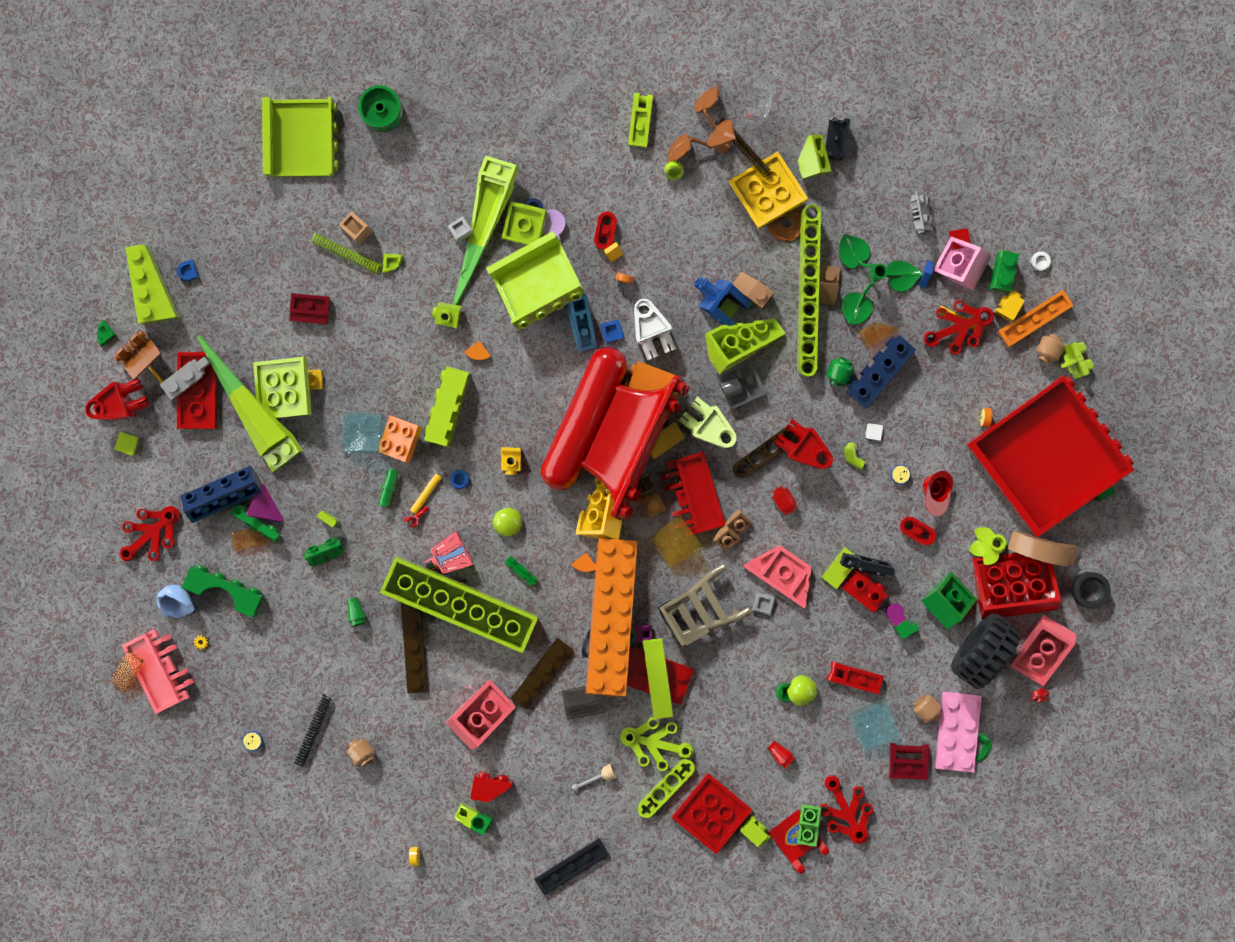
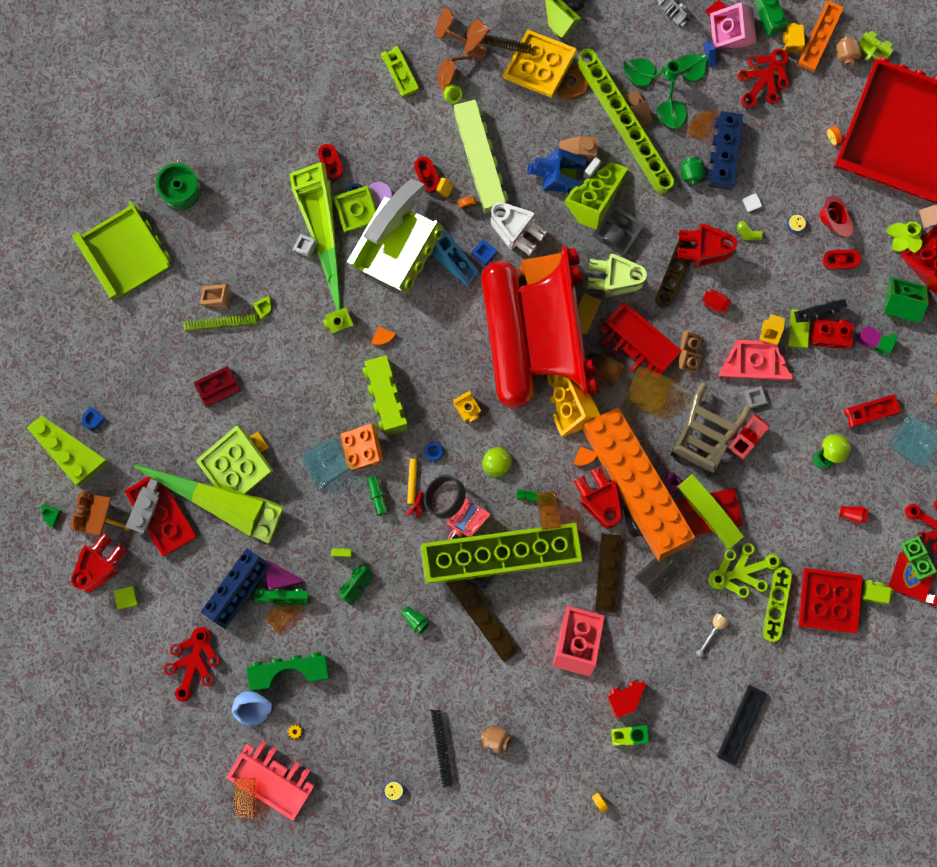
camera: 35 degrees left, 10 degrees down
(432, 514) = (456, 506): none -> black tyre
(521, 593) = (548, 510): none -> clear orange slope
(528, 167) = (330, 162): none -> red plate
(554, 248) = (391, 214): none -> light grey slope
(572, 611) = (601, 500): none -> red piece
(661, 243) = (479, 155): none -> yellowish green brick
(732, 635) = (749, 436): none -> red brick
(752, 315) = (592, 168): none -> white tile
(815, 555) = (772, 329): none -> yellow brick

